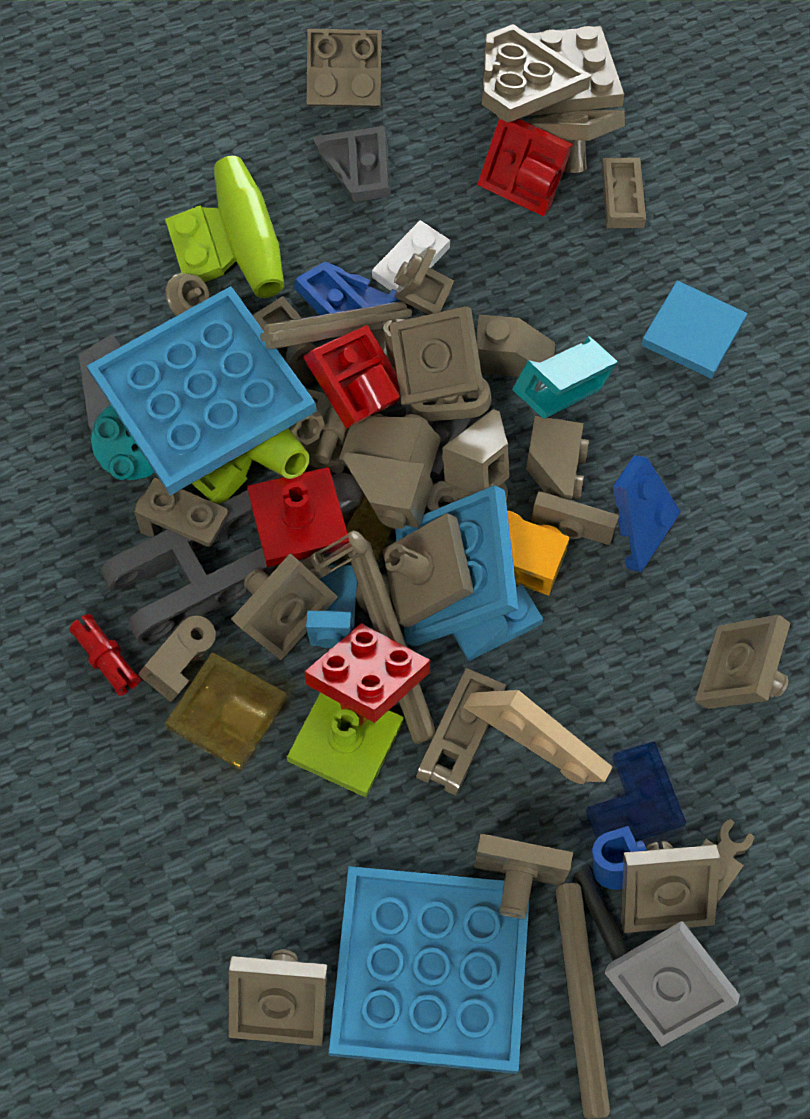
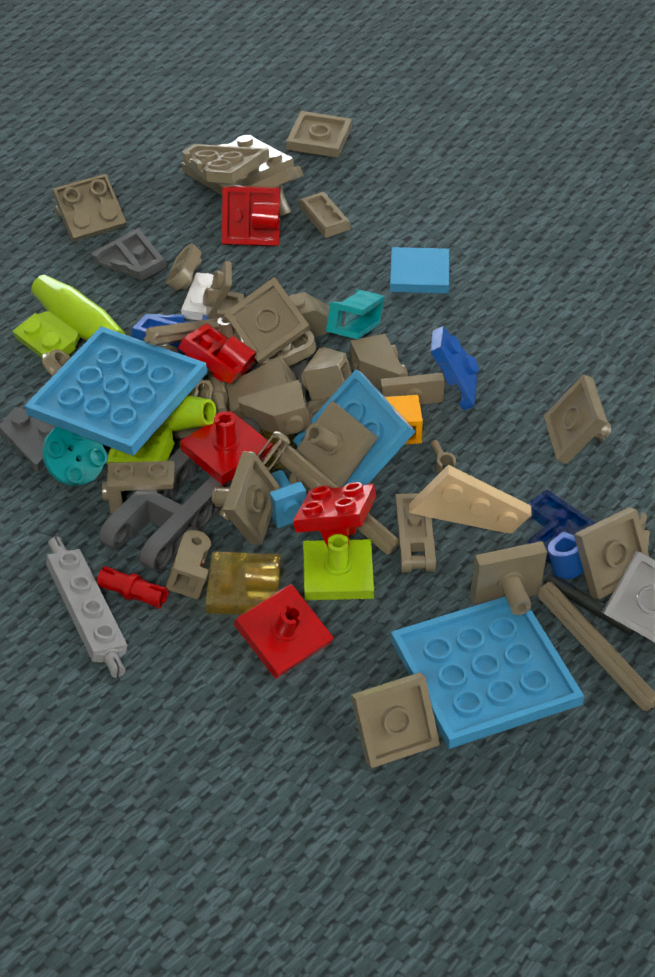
camera: 25 degrees left, 20 degrees down
(42, 656) = (87, 606): none -> light grey plate
(230, 803) = (283, 631): none -> red tile
(415, 200) = (183, 268): none -> dark tan plate
(499, 630) = (399, 469): dark azure slope -> none
(558, 630) = (443, 458): none -> dark tan hand
(688, 59) = (319, 134): none -> dark tan plate

